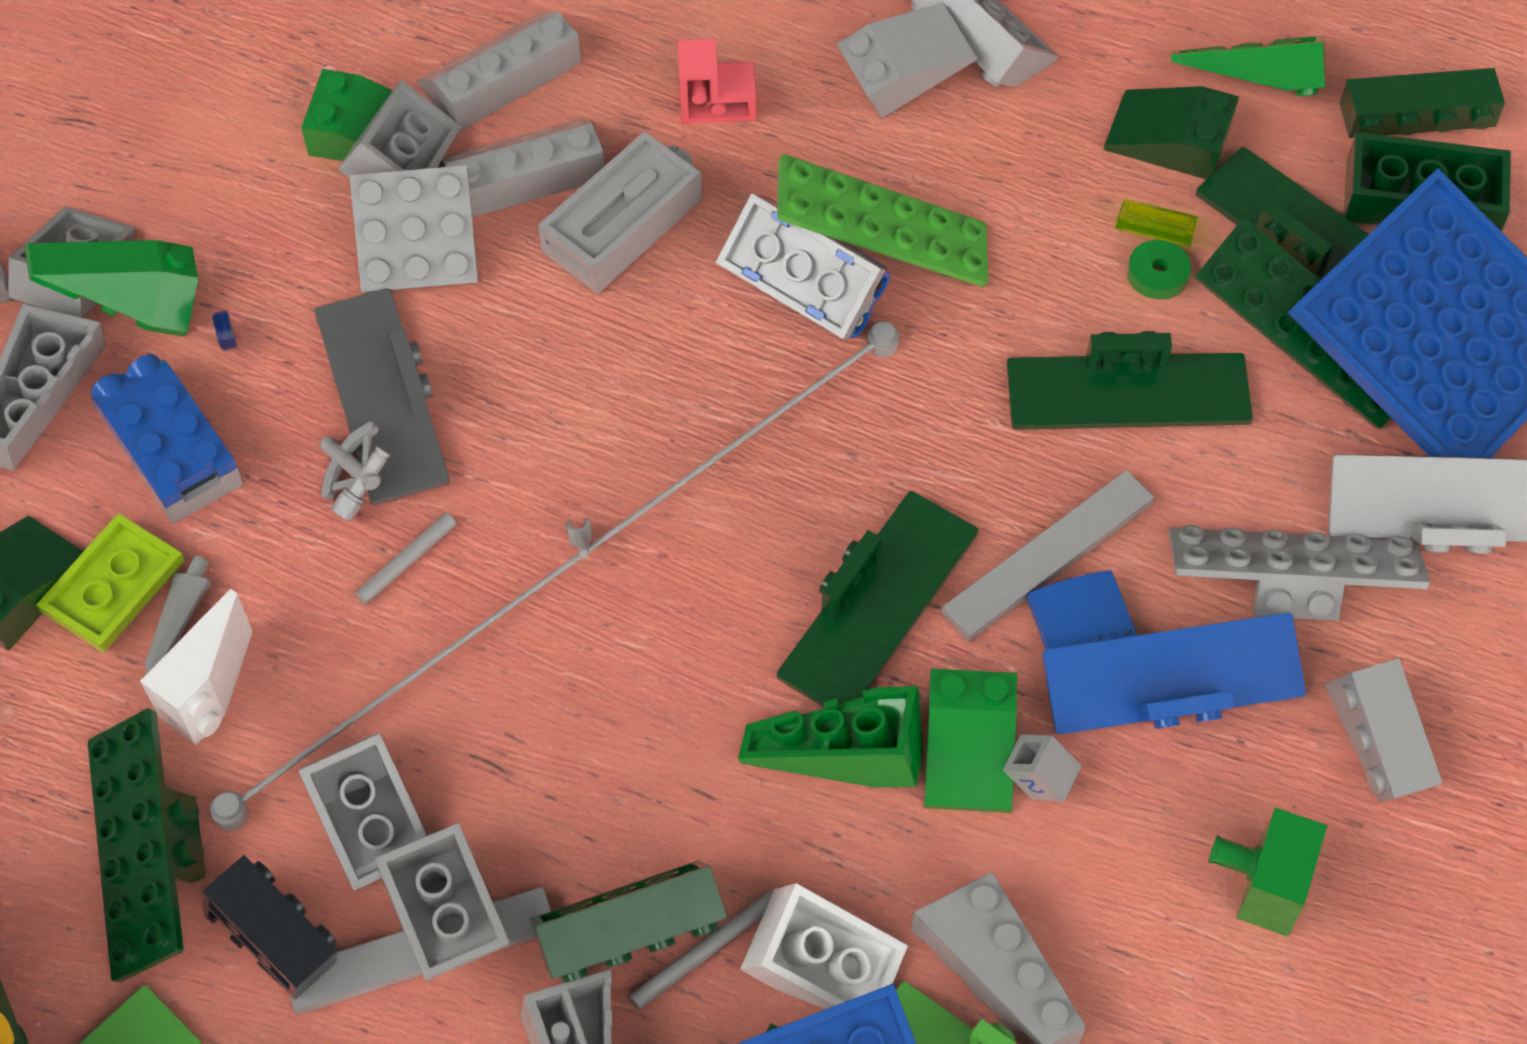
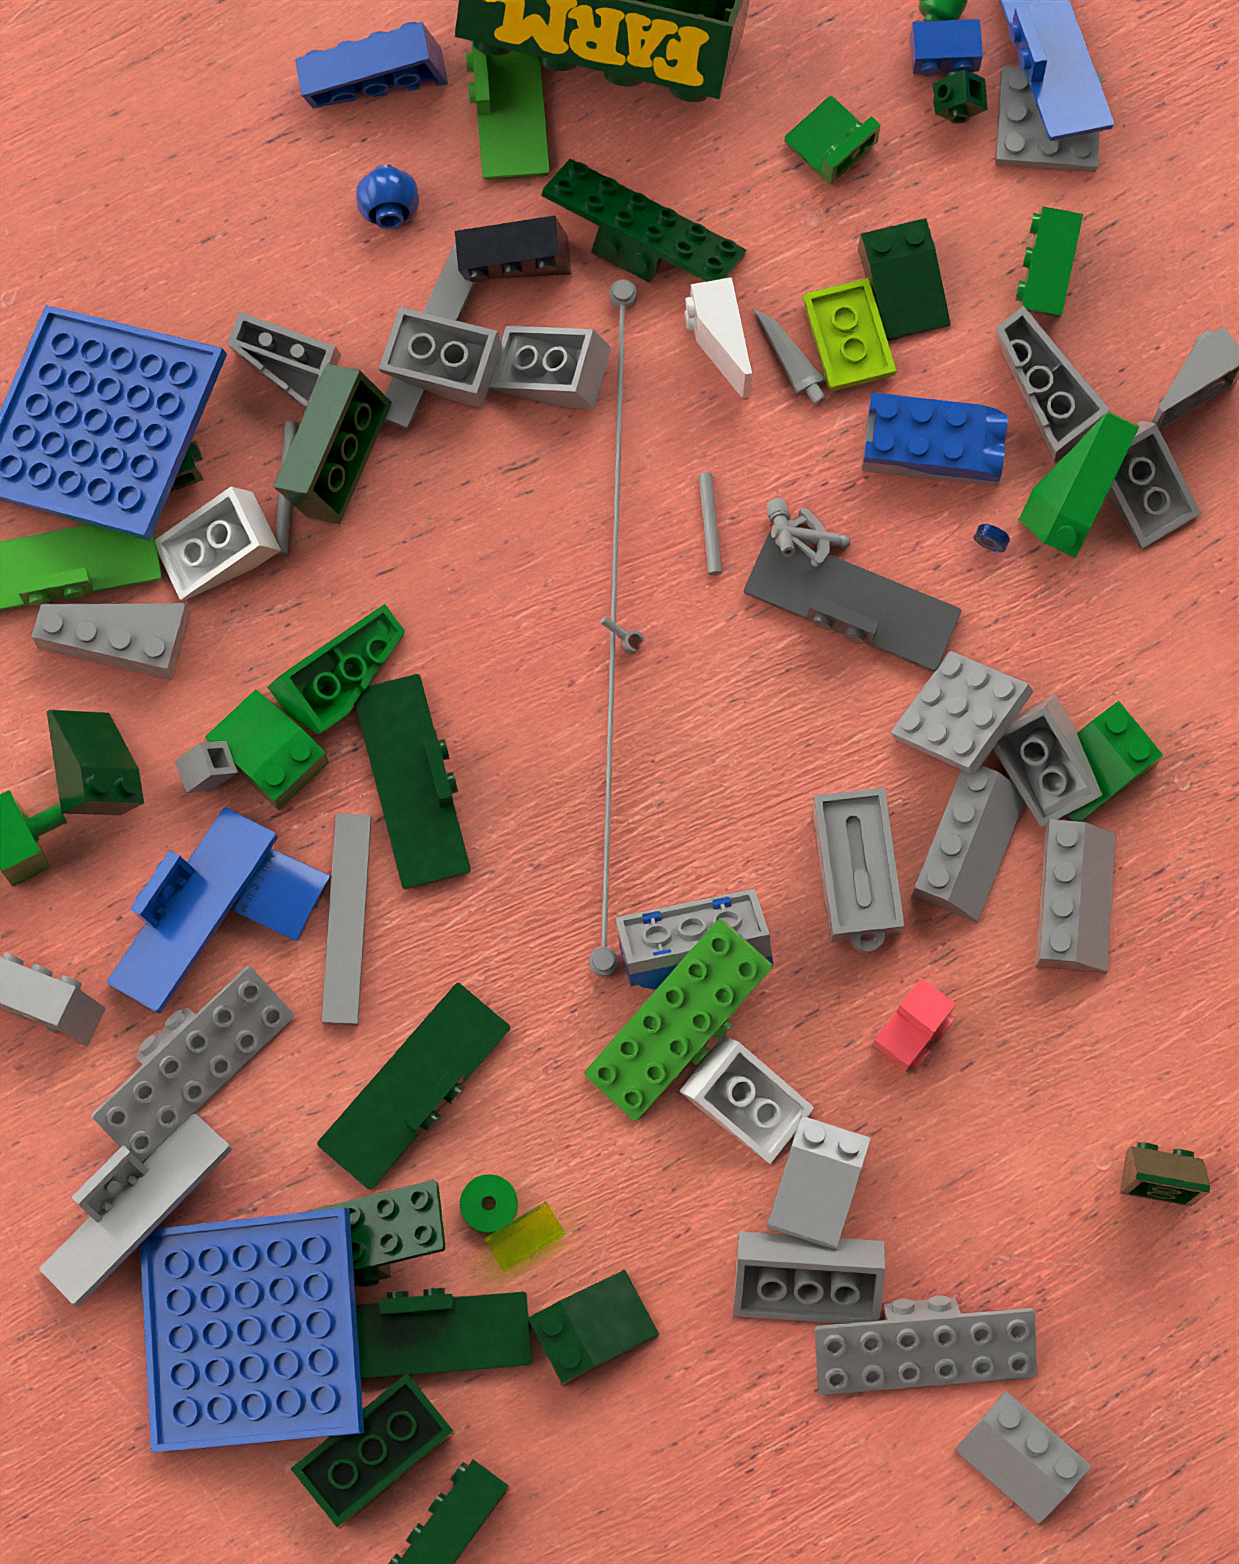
camera: 130 degrees right, 15 degrees up
(892, 153) = (746, 1098): none -> white slope
(1142, 862) = (92, 764): none -> dark green slope
(1284, 64) = (580, 1459): green wedge -> none

